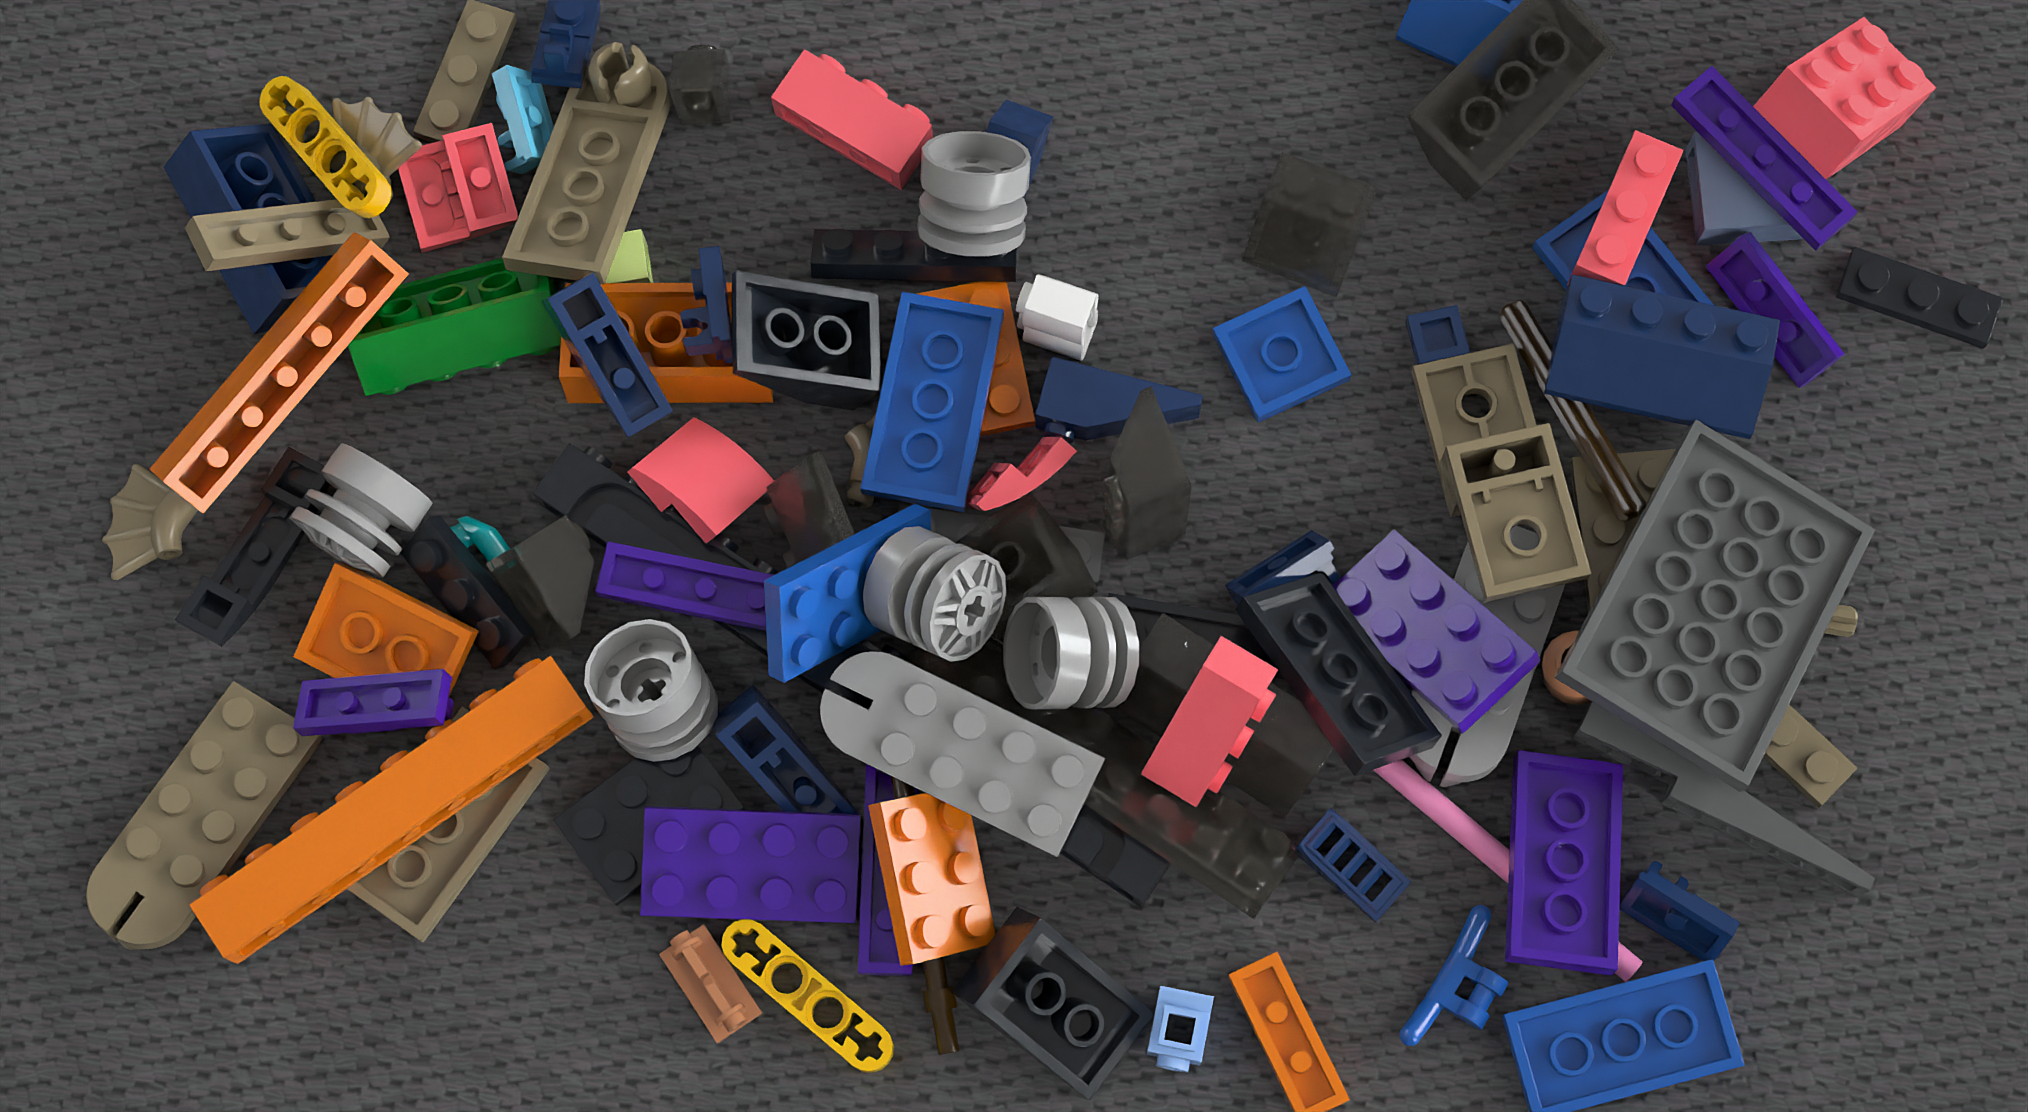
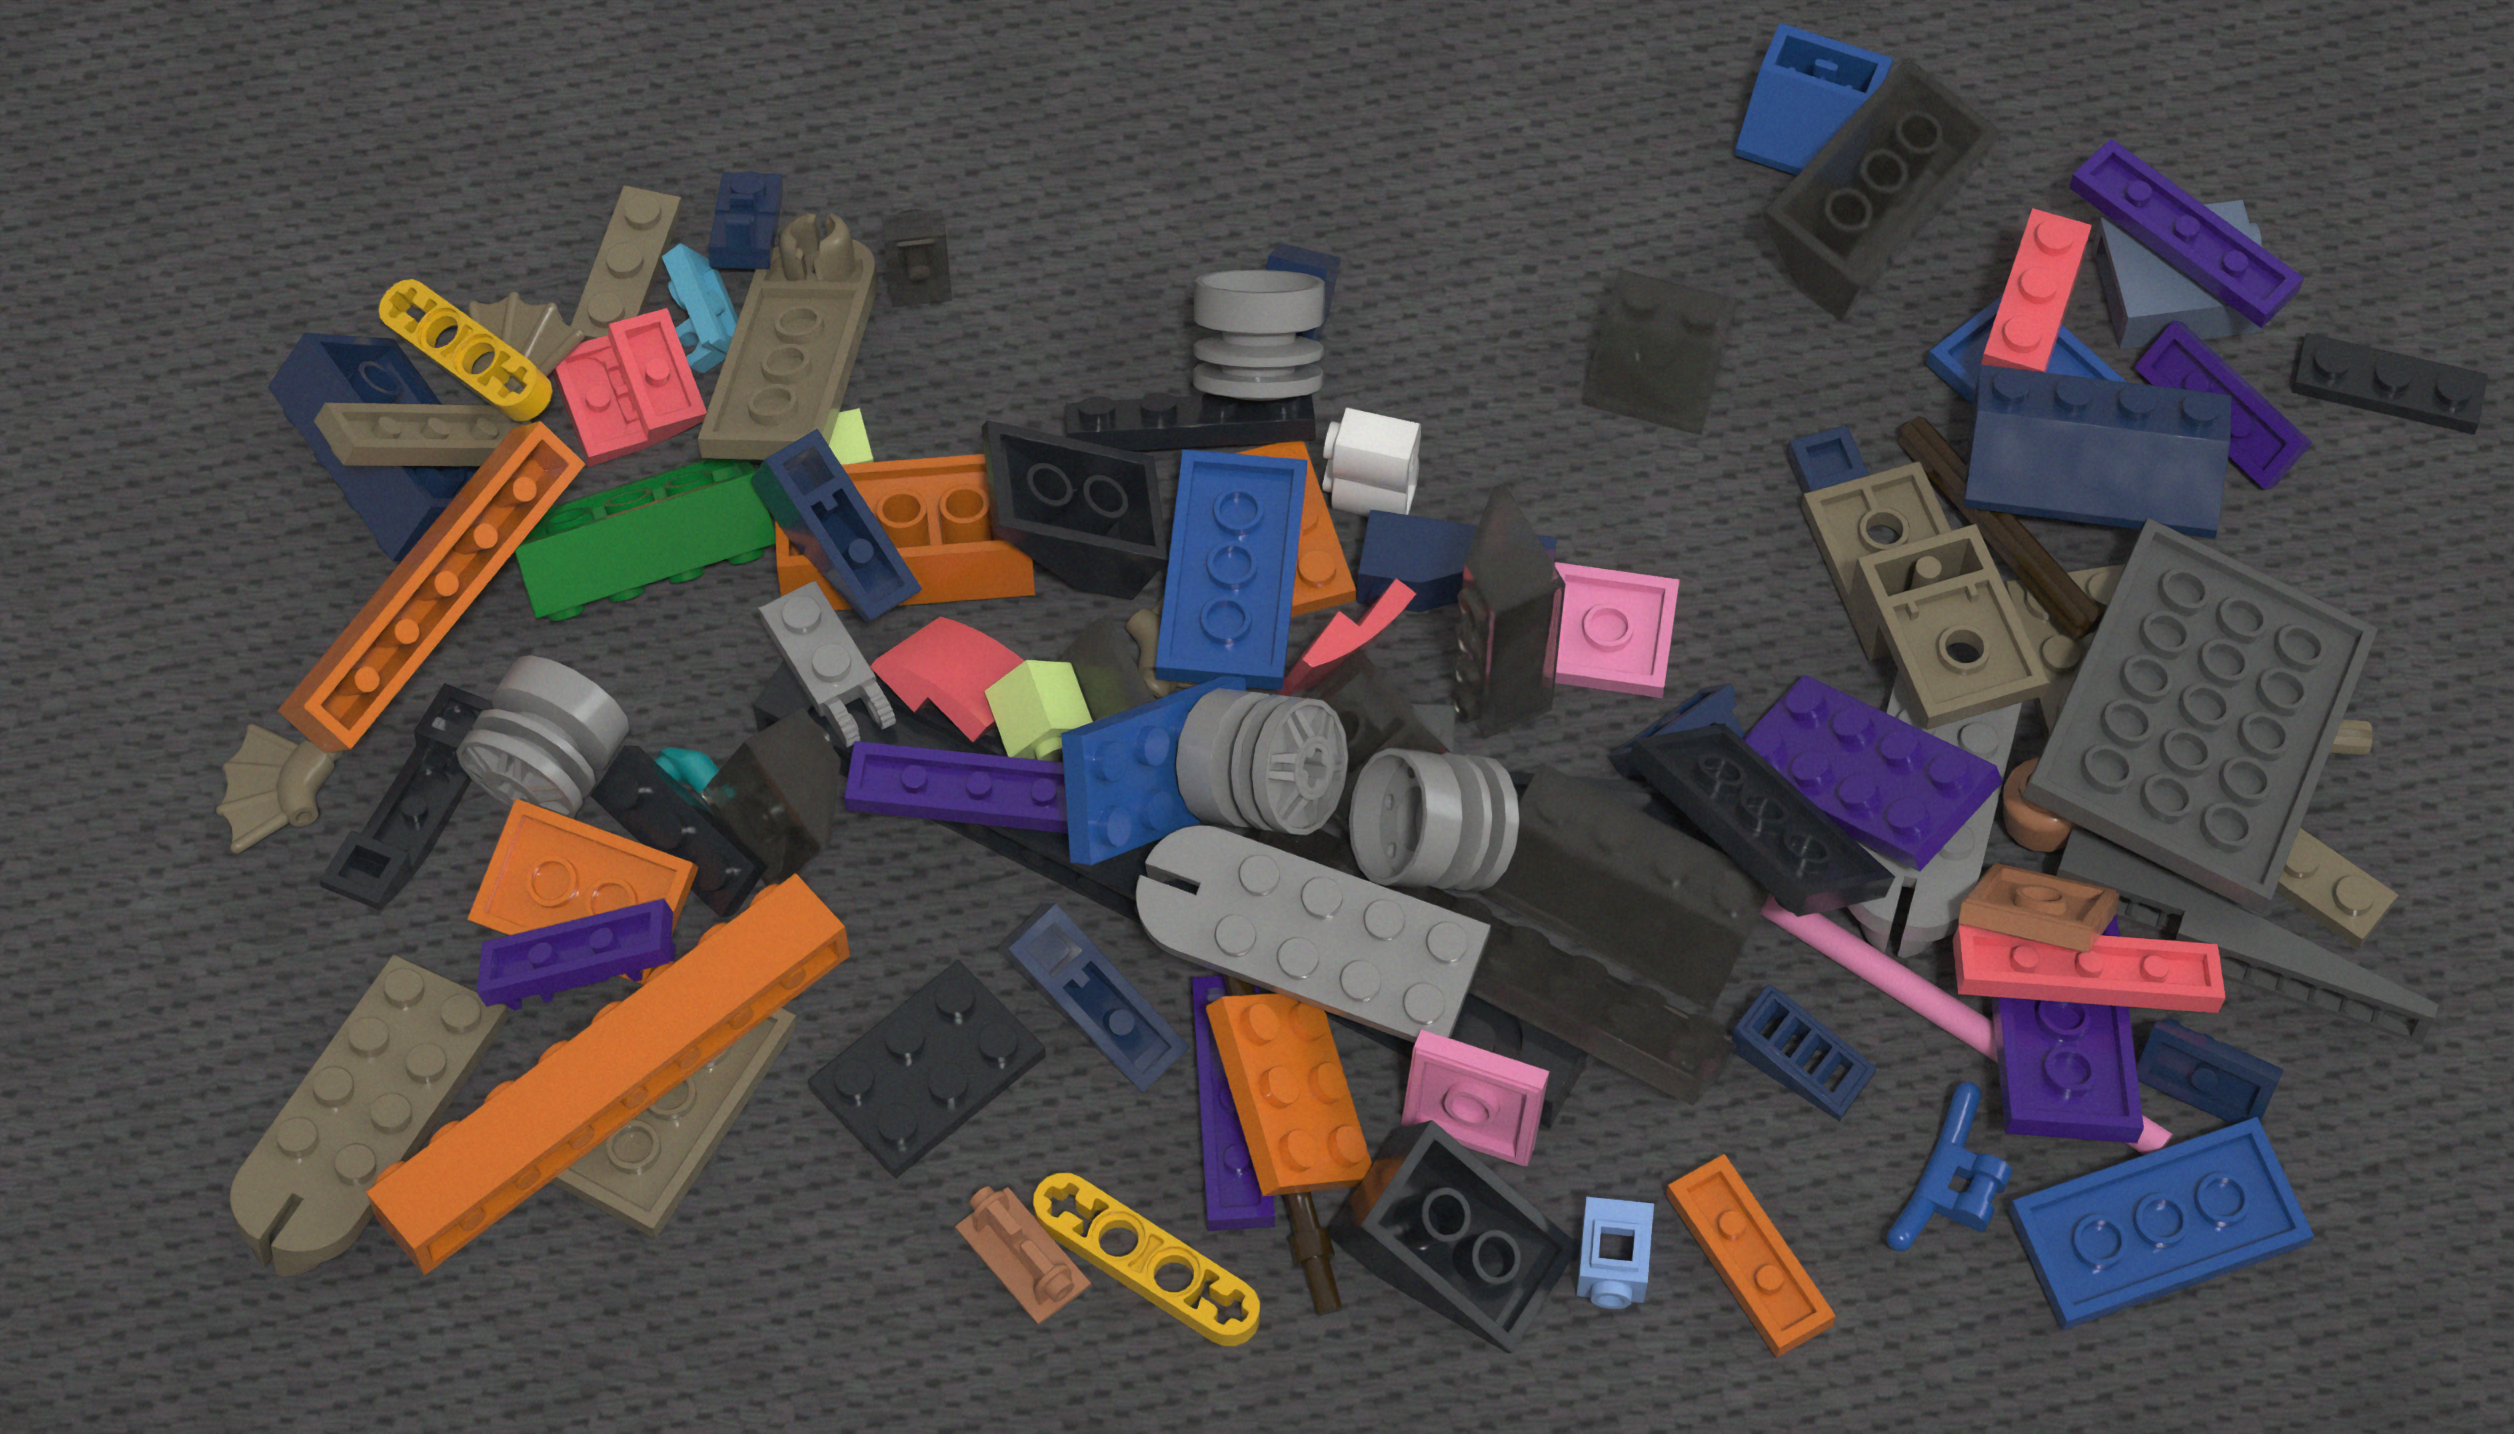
camera: 10 degrees left, 15 degrees down
(591, 459) = (825, 659): none -> light grey hinge
(651, 690) = (922, 910): light grey wheel -> none
(714, 319) = (962, 482): dark blue plate -> none
(750, 864) = (1061, 1107): dark purple plate -> none
(762, 525) = (1035, 707): none -> yellowish green brick
(853, 117) = (1100, 279): coral brick -> none
(1079, 892) = (1476, 1096): none -> bright pink tile
(1212, 723) = (1615, 878): coral brick -> none
(1240, 470) = (1615, 630): none -> bright pink tile
(1281, 354) = (1644, 496): blue plate -> none
(1558, 767) = (2039, 907): none -> nougat tile
(1591, 825) = (2112, 973): none -> coral plate
(1844, 97) = (2270, 163): coral brick -> none

